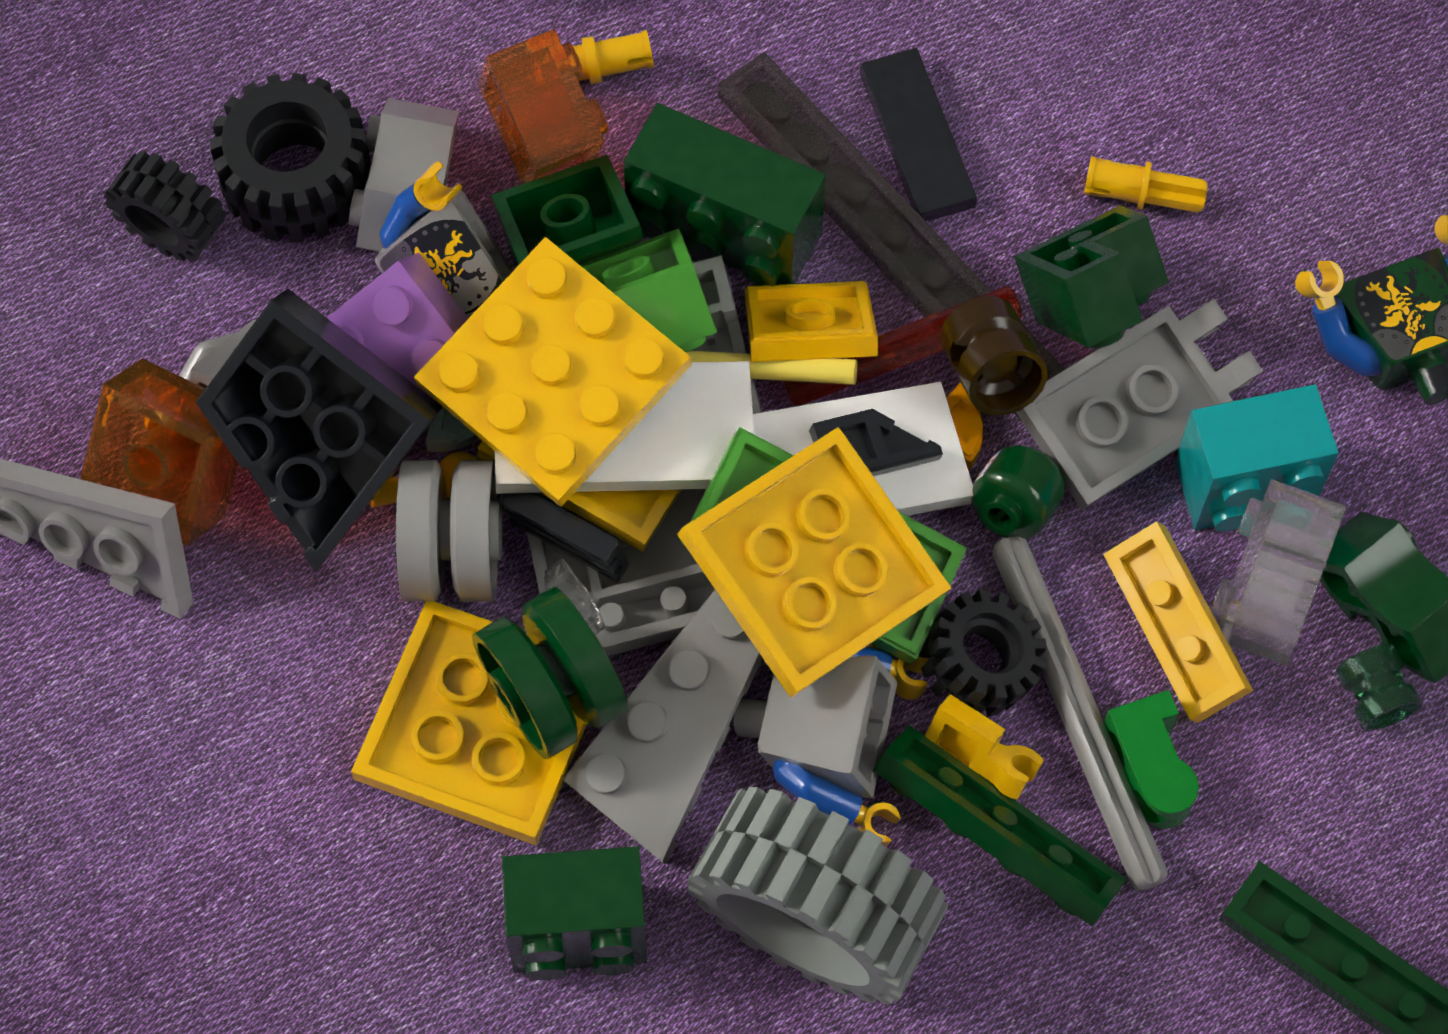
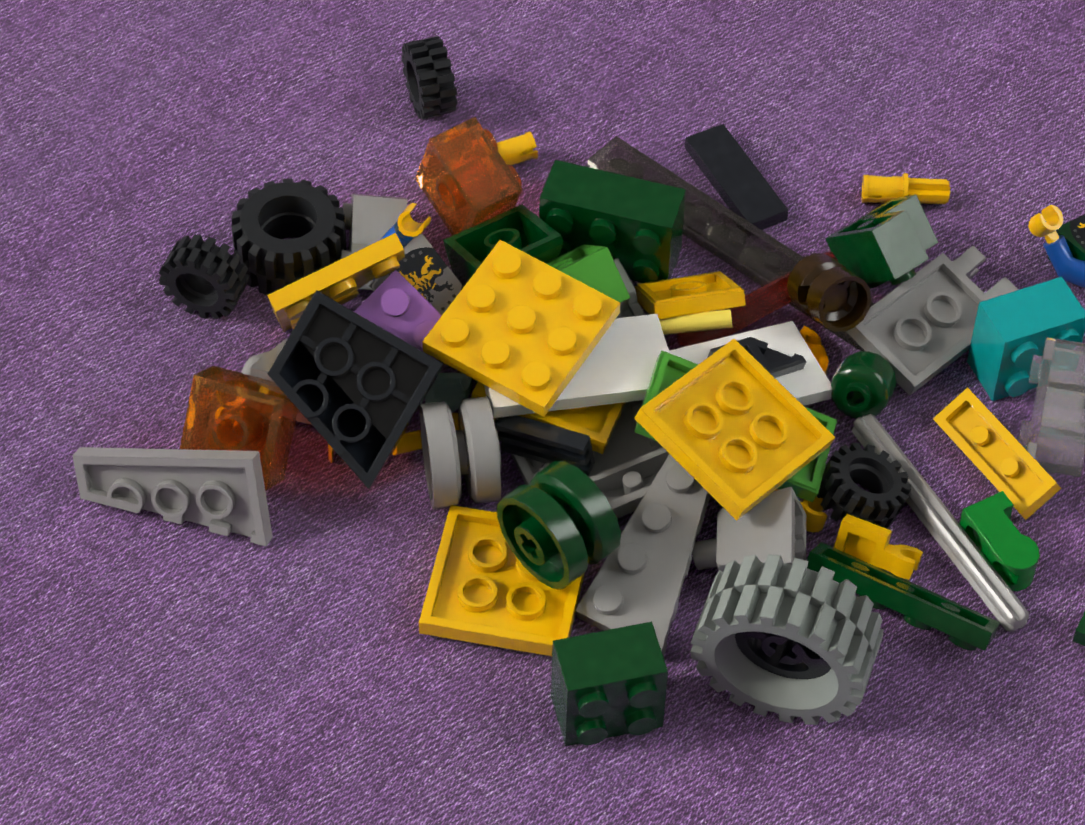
camera: 10 degrees left, 15 degrees down
(319, 264) = (338, 280): none -> yellow plate

